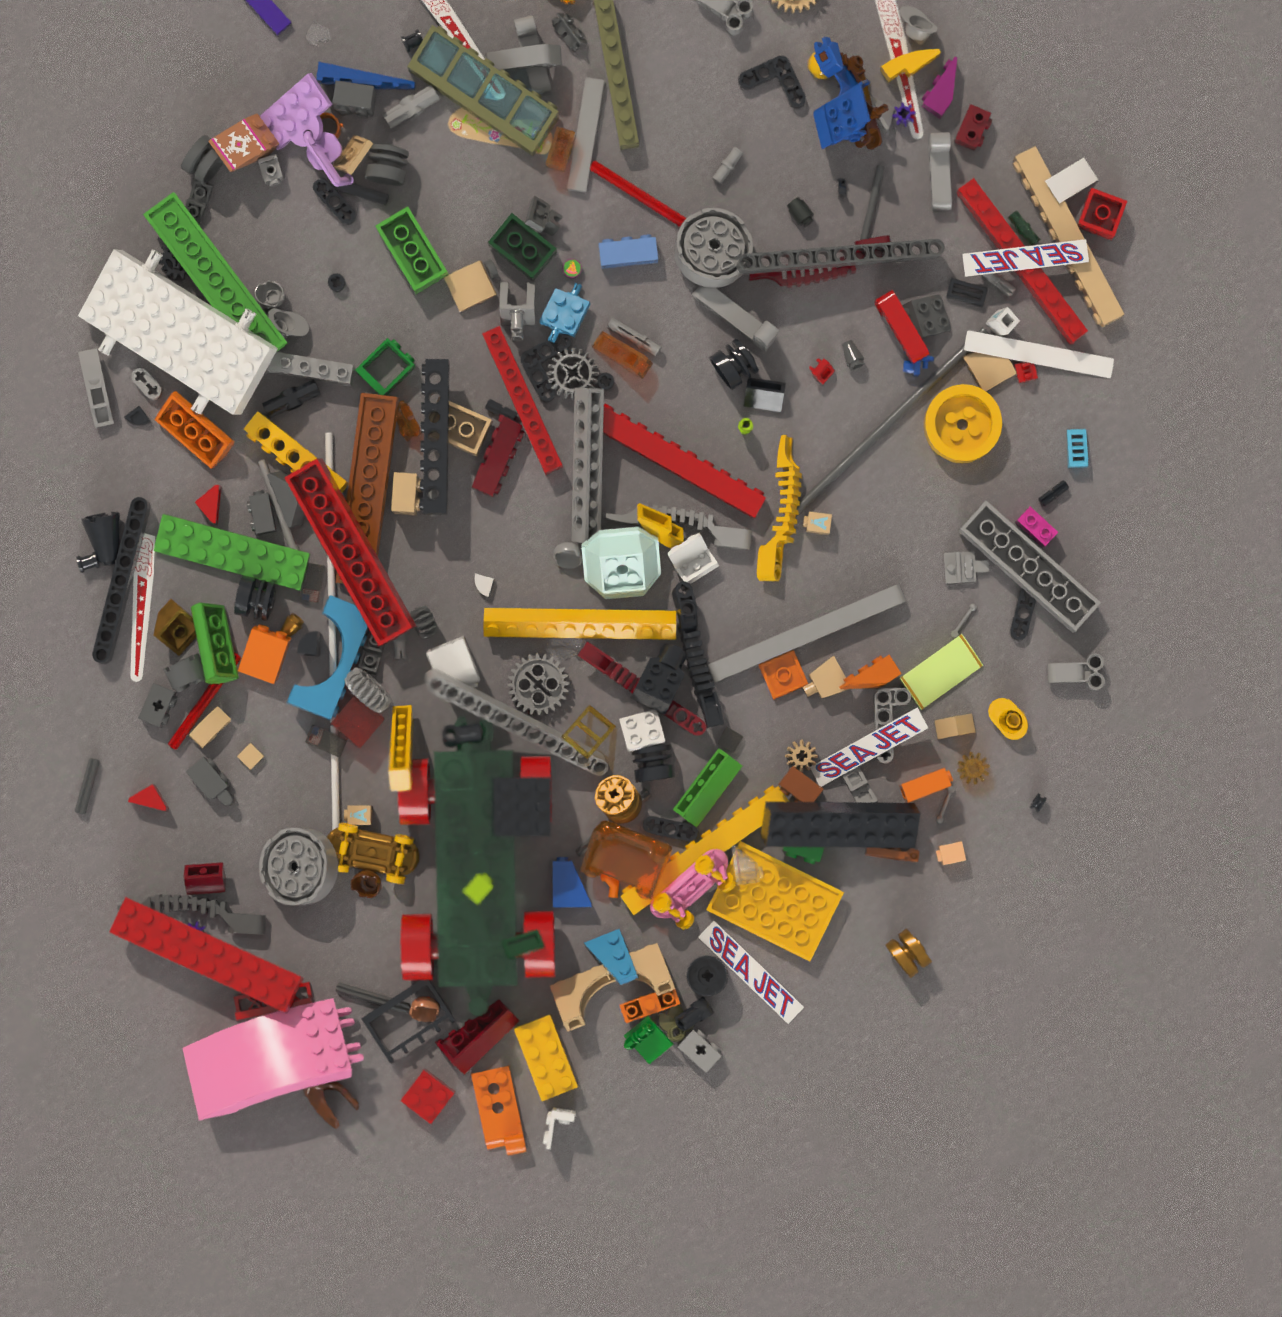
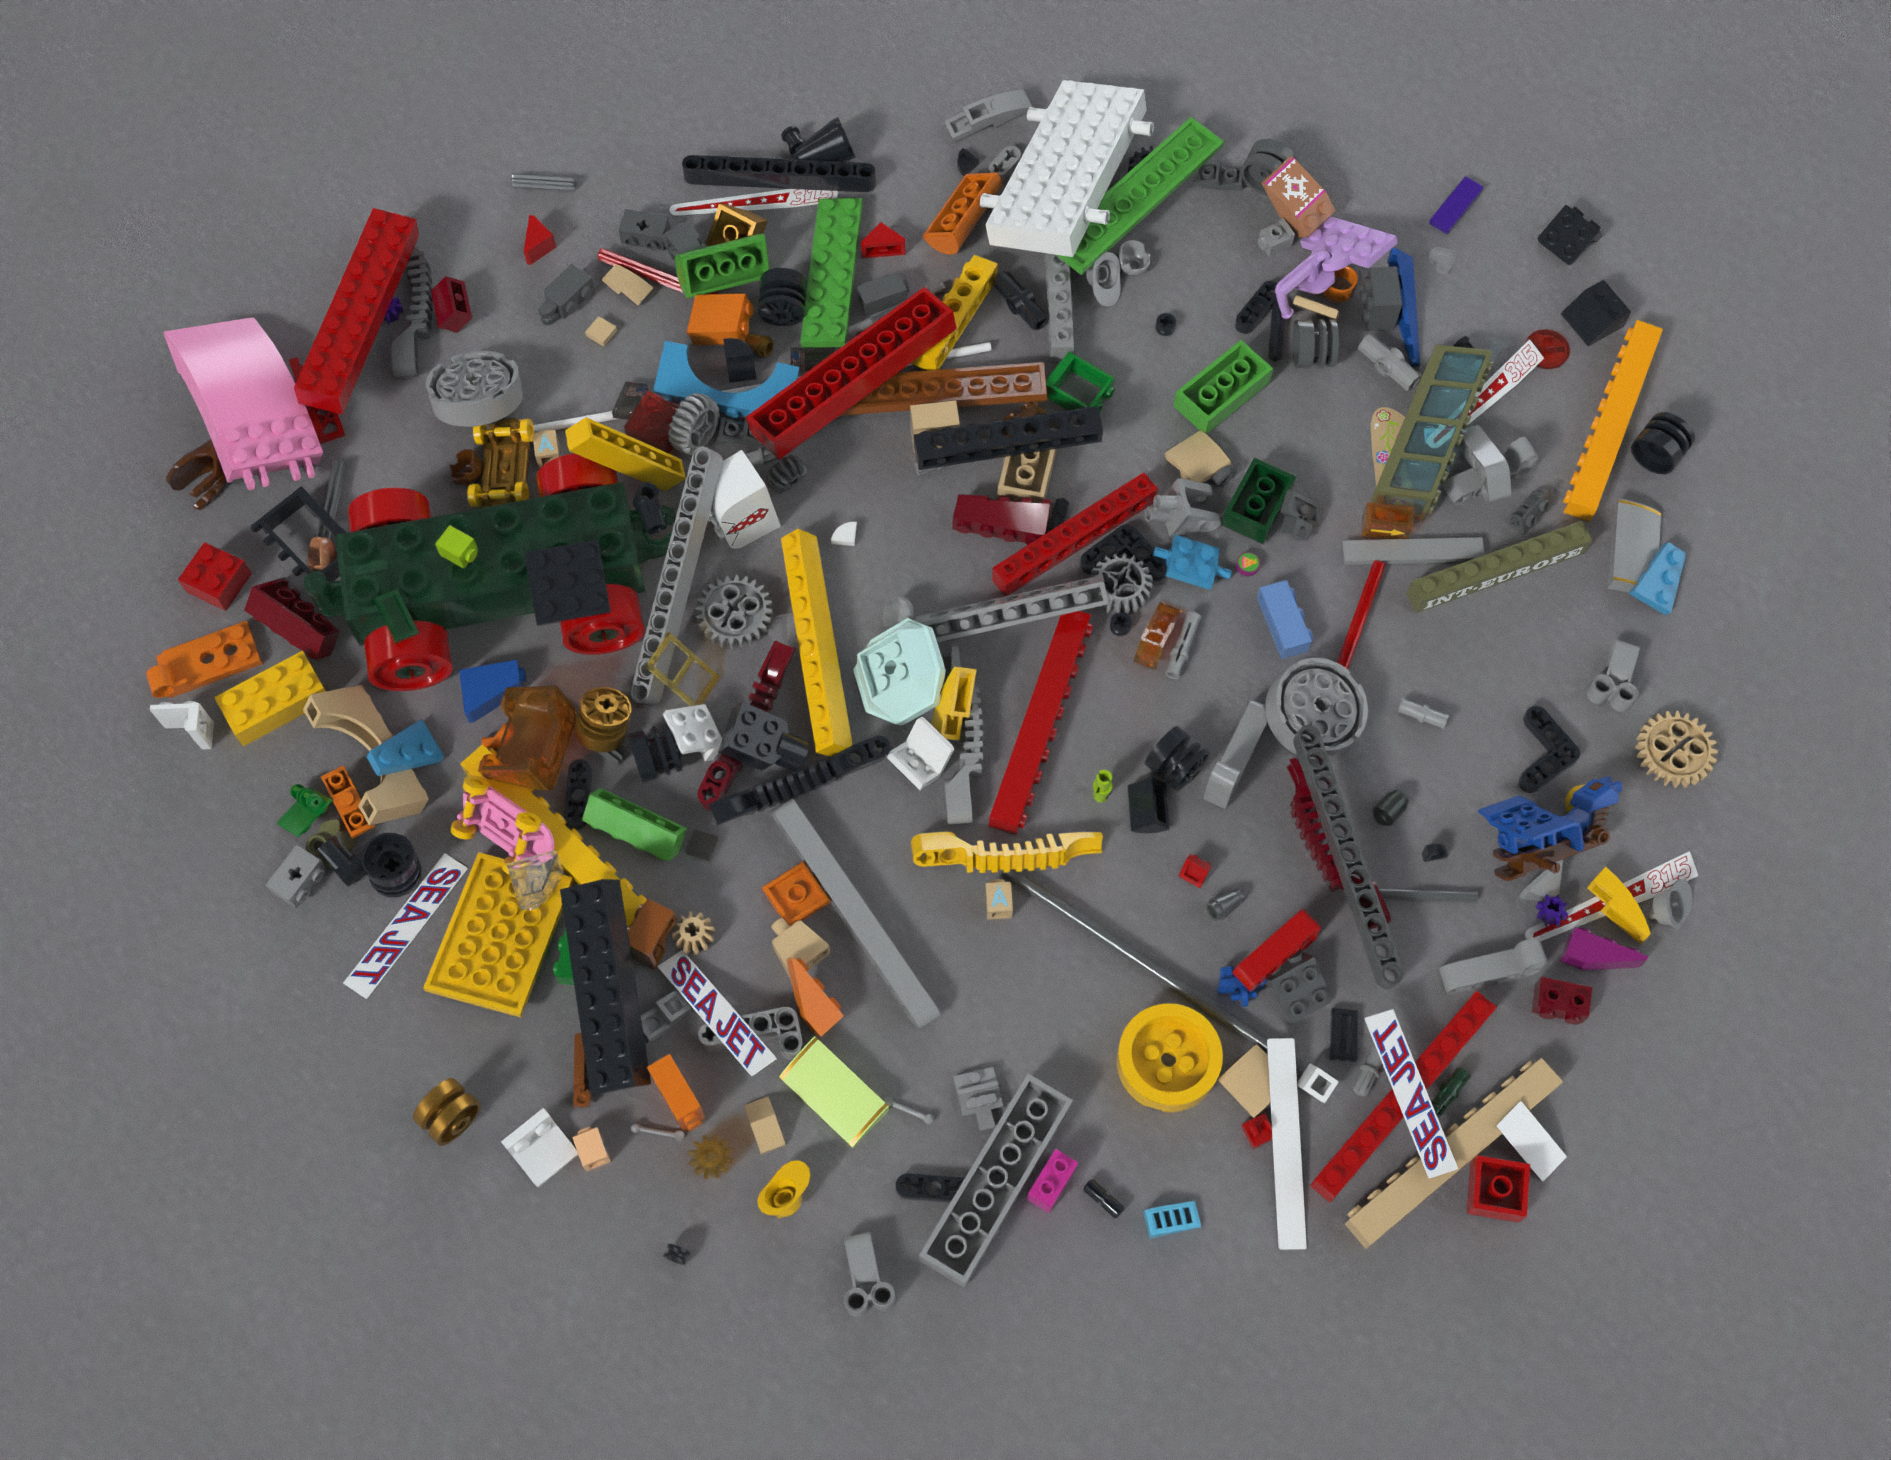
camera: 80 degrees right, 20 degrees down
(944, 889) = (540, 1147): none -> white bracket

